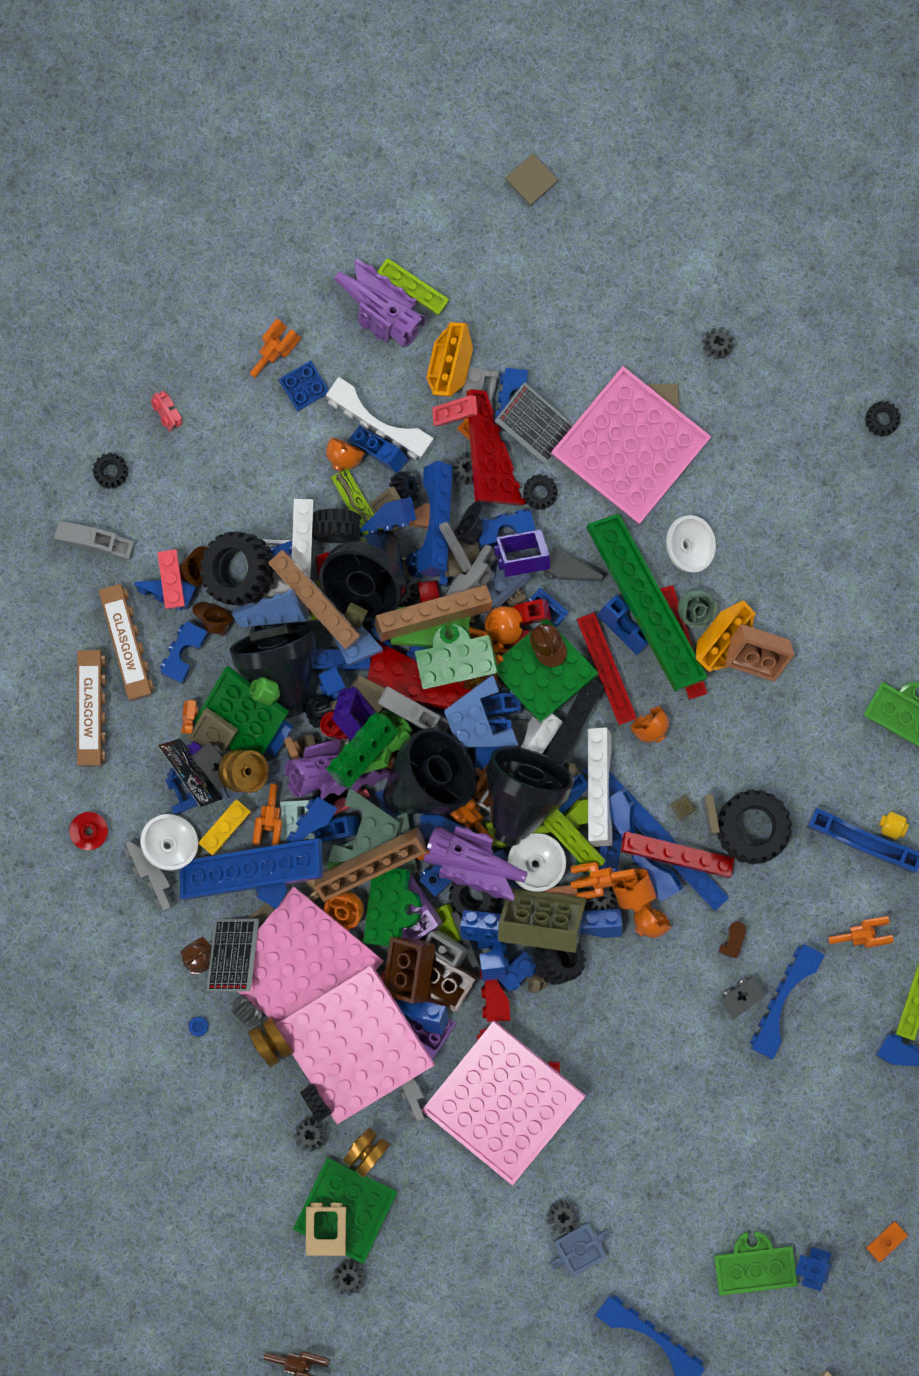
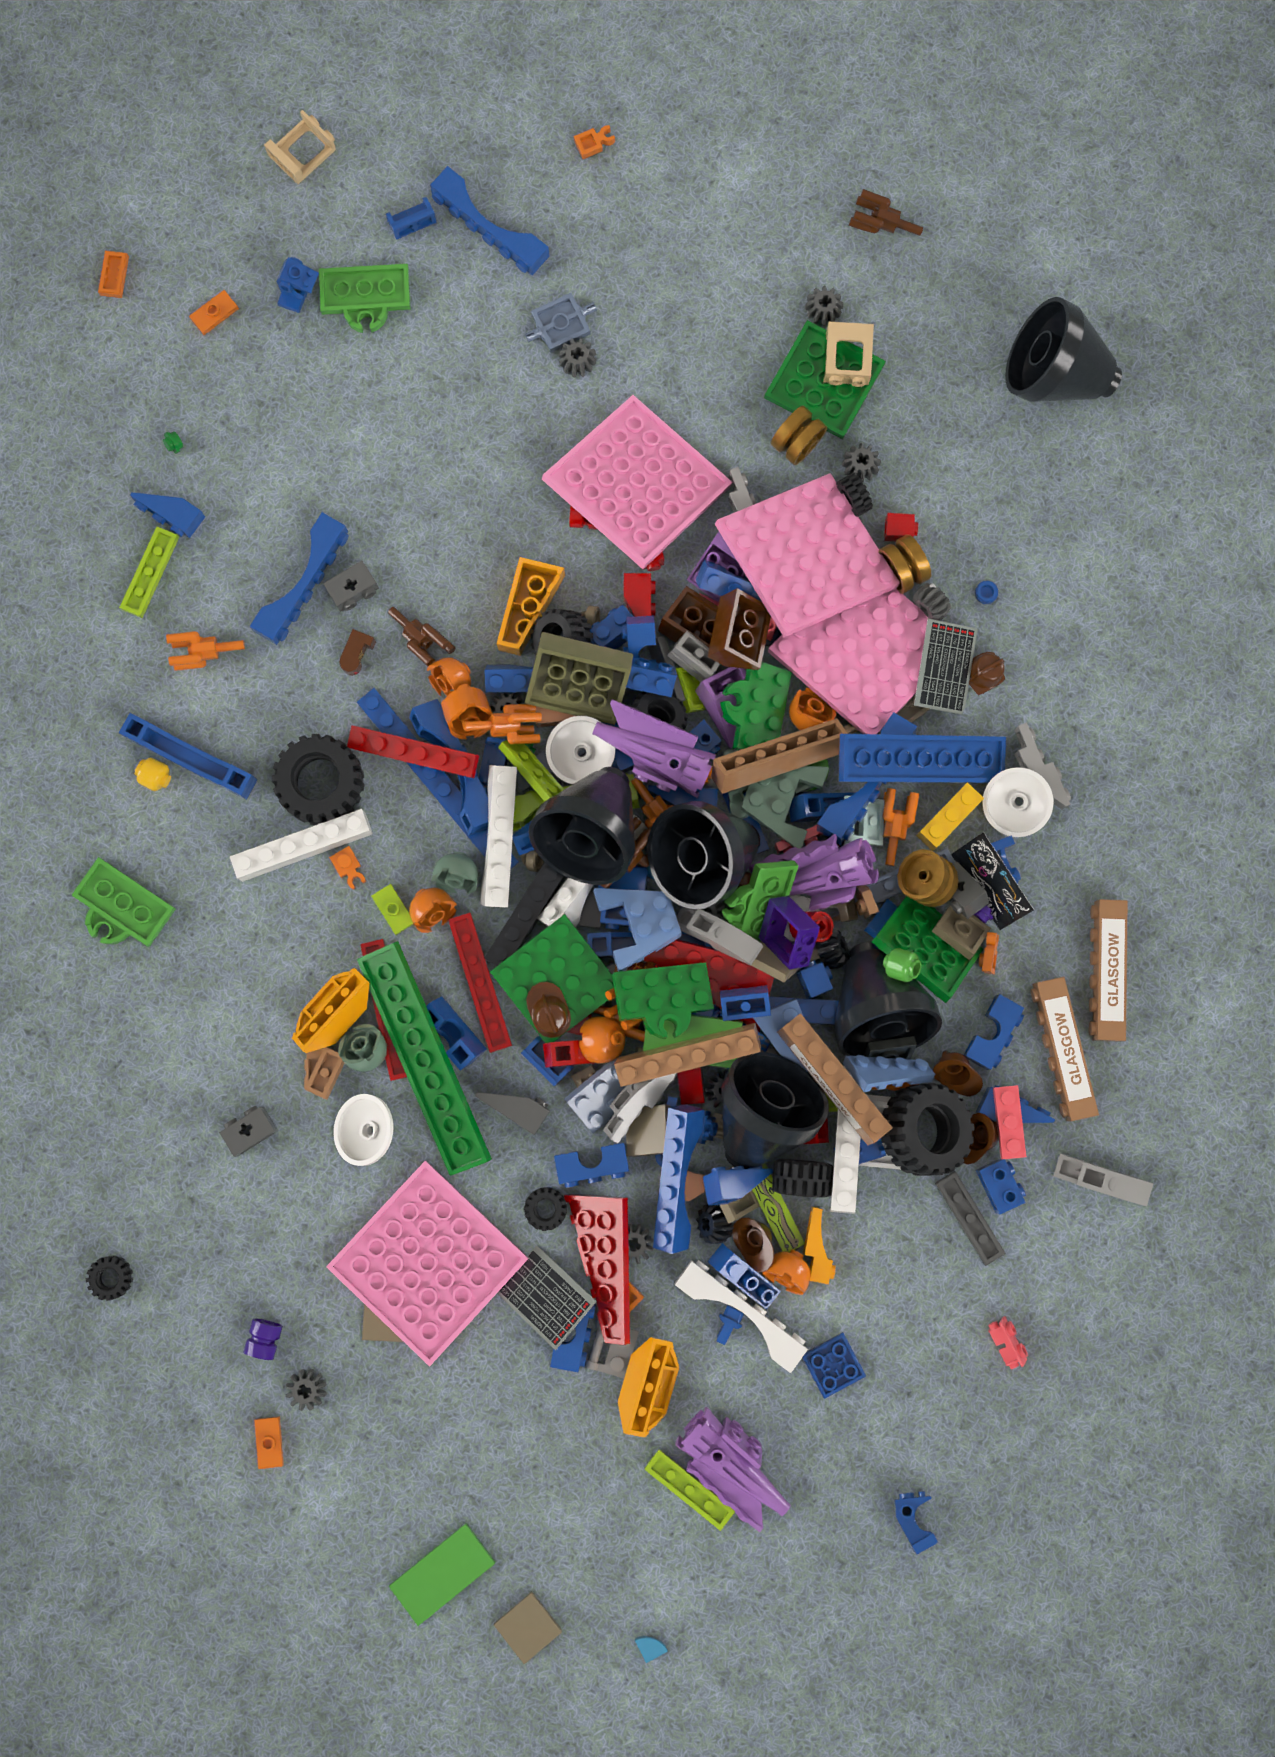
camera: 175 degrees left, 0 degrees up
(78, 831) = (1124, 822): red dish -> none
(106, 460) = (1093, 1275): black tyre -> none
(142, 1232) = (1060, 357): none -> black cone
(175, 530) = (1001, 1186): none -> blue brick
(199, 504) = (970, 1218): none -> dark grey tile
(235, 261) = (918, 1538): none -> blue tile
(274, 347) = (870, 1419): orange plant -> none
(274, 1077) = (899, 525): none -> red brick
(317, 460) = (821, 1267): none -> light orange slope
(355, 615) = (784, 1060): olive plate -> none
(362, 750) = (784, 886): green brick -> none
(371, 474) = (754, 1243): none -> reddish brown piece
(387, 414) = (731, 1319): none -> blue piece
(389, 658) = (745, 1003): none -> blue brick
(436, 170) = (650, 1647): none -> dark azure tile
(454, 410) = (645, 1318): coral plate -> none
(455, 546) = (656, 1139): light grey axle -> none
(470, 525) = (635, 1166): black piece -> none
(519, 542) = (572, 1145): dark purple window -> none
(590, 992) = (529, 597): none -> light orange wedge
(600, 214) = (442, 1574): none -> bright green tile
(633, 757) = (452, 871): none -> sand green cylinder
(678, 954) = (420, 637): none -> reddish brown plant
(682, 807) = (402, 811): tile -> none
(683, 725) = (392, 909): none -> lime plate
(710, 815) = (368, 795): dark tan tile -> none
(720, 1340) = (411, 219): none -> blue hinge
(725, 760) = (346, 864): none -> orange plate
(728, 589) = (322, 1071): none -> medium nougat wing
(744, 302) = (269, 1442): none -> orange plate
(756, 376) = (263, 1339): none -> dark purple wheel
(759, 652) = (291, 988): nougat slope -> none
(763, 771) = (301, 845): none -> white brick
(788, 529) = (262, 1129): none -> dark grey brick
(909, 1118) = (172, 442): none -> green plate

